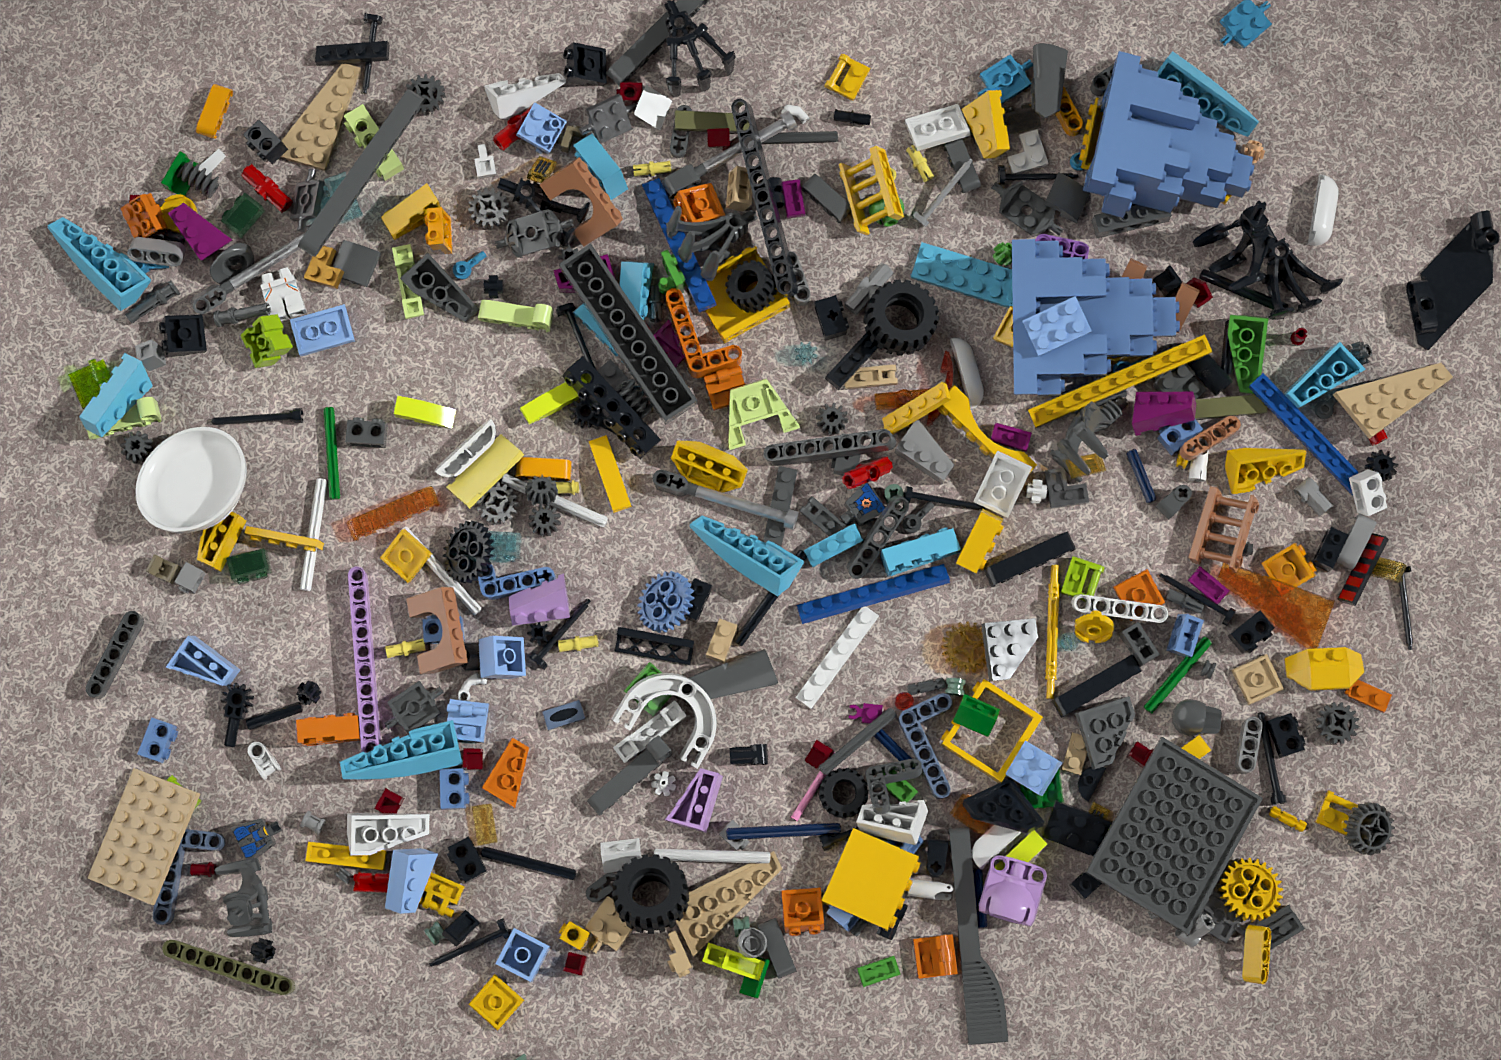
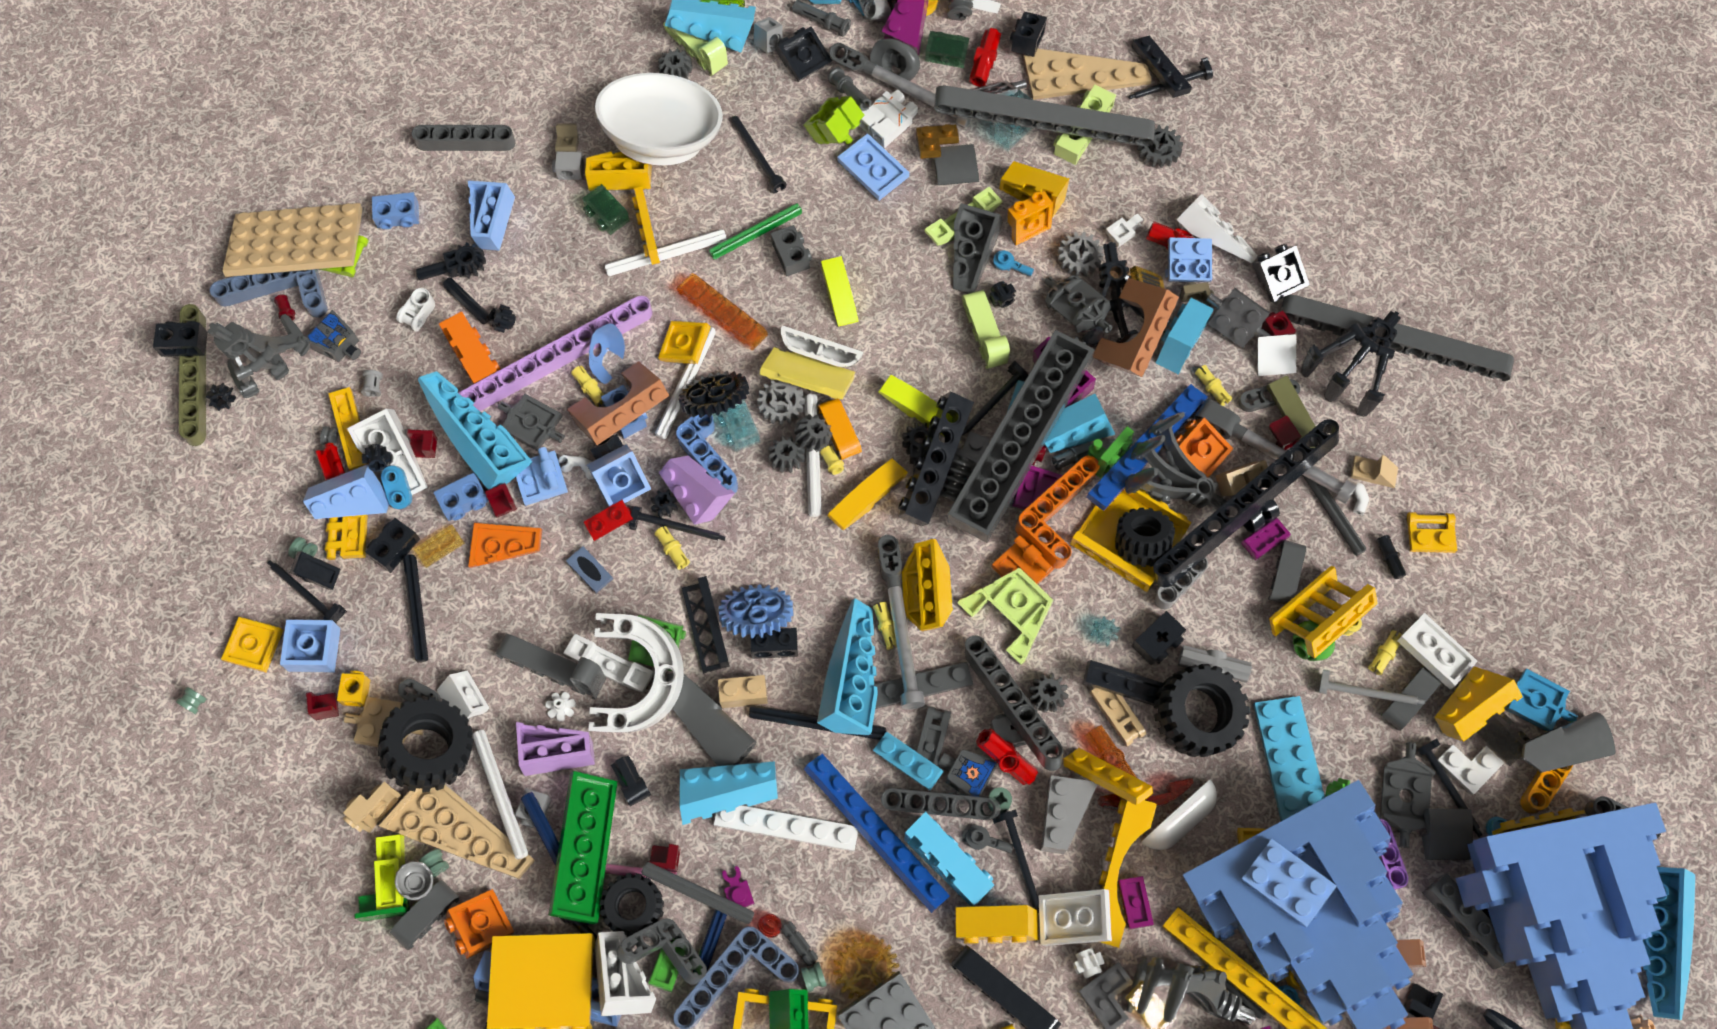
camera: 65 degrees right, 10 degrees down
(202, 965) = (180, 342): none -> black brick
(377, 611) = (608, 337): none -> medium blue piece
(390, 841) = (376, 457): none -> black gear
(419, 837) = (397, 486): none -> dark azure plate
(533, 681) = (608, 520): none -> red hinge
(721, 511) = (885, 624): none -> light yellow pin
(780, 90) = (1377, 472): none -> tan slope
(785, 809) = (583, 848): none -> green plate
(790, 687) = (725, 788): none -> medium azure wedge

